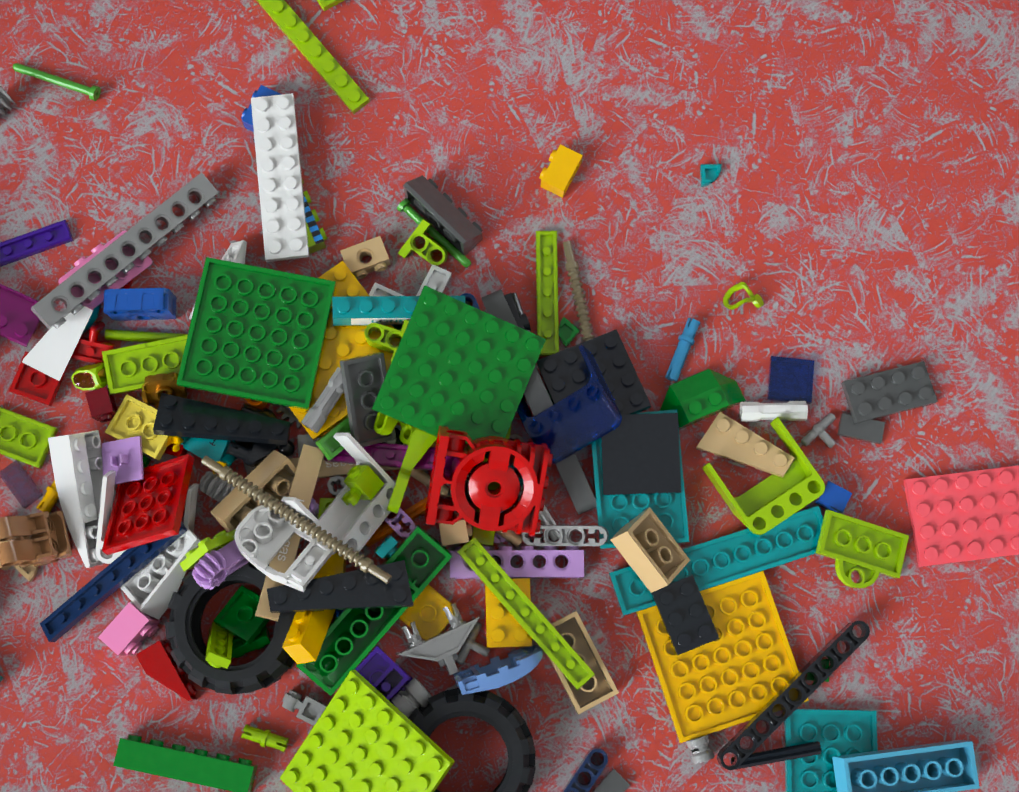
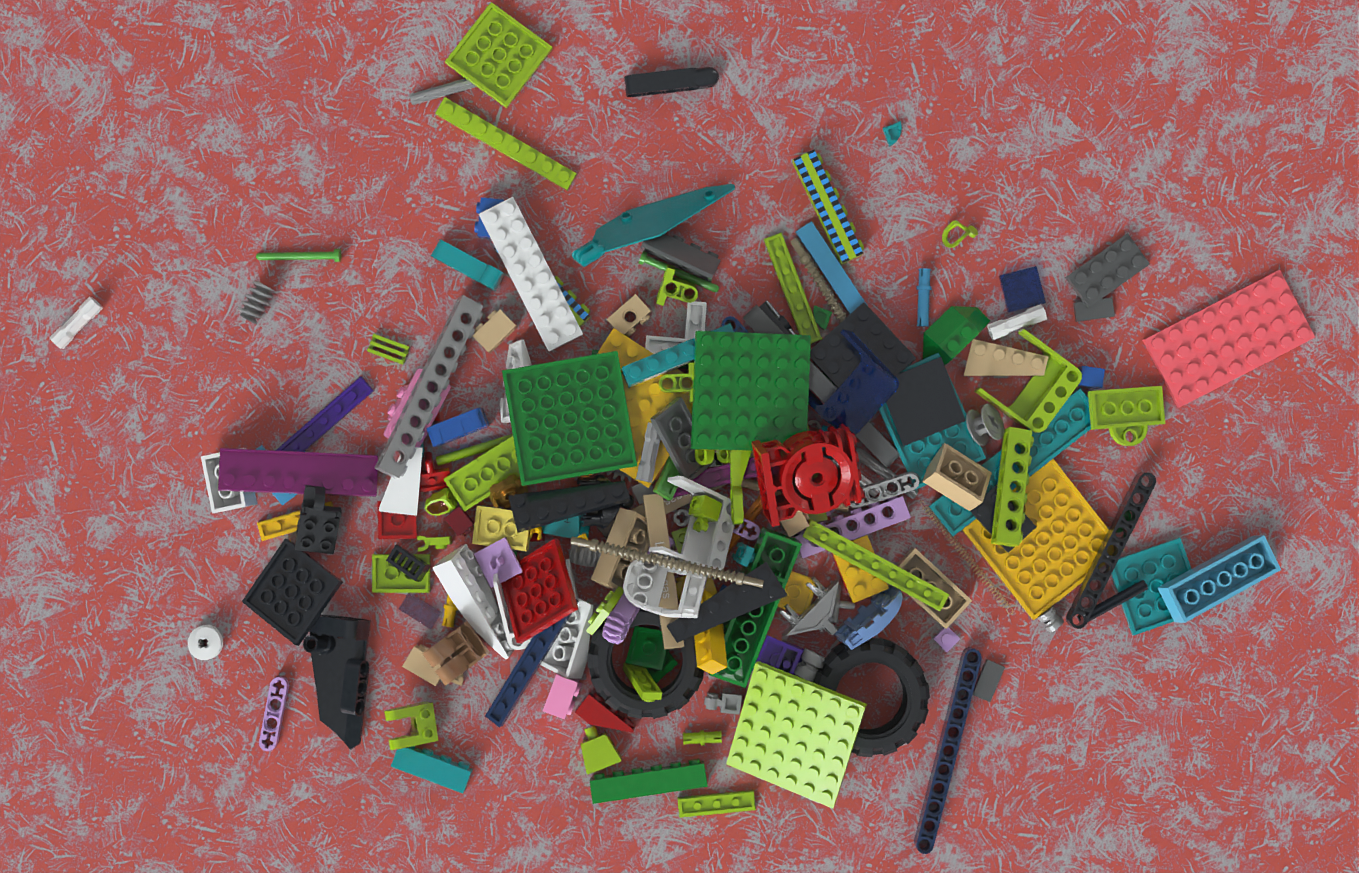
camera: 20 degrees left, 10 degrees up
(37, 438) = (424, 567): none -> black slope
(71, 418) = (439, 542): none -> lime plate
(93, 192) = (373, 343): none -> lime tile
(145, 709) = (598, 750): none -> lime torso
(220, 223) = (494, 330): none -> tan brick
(225, 153) = (468, 265): none -> teal beam
(418, 169) = (648, 222): none -> teal wing
(499, 43) = (670, 81): none -> black piece
(561, 170) = (766, 178): yellow brick -> none
(572, 516) = (881, 470): none -> light grey axle
(576, 728) = (946, 639): none -> lavender plate
(594, 283) = (830, 267): none -> dark azure tile
(614, 222) = (827, 206): none -> brick
(623, 630) = (976, 568): none -> tan piece
(676, 630) = (1002, 514): none -> lime brick
(695, 505) = (985, 424): none -> light grey piece
(819, 430) = (1060, 324): light grey piece -> none

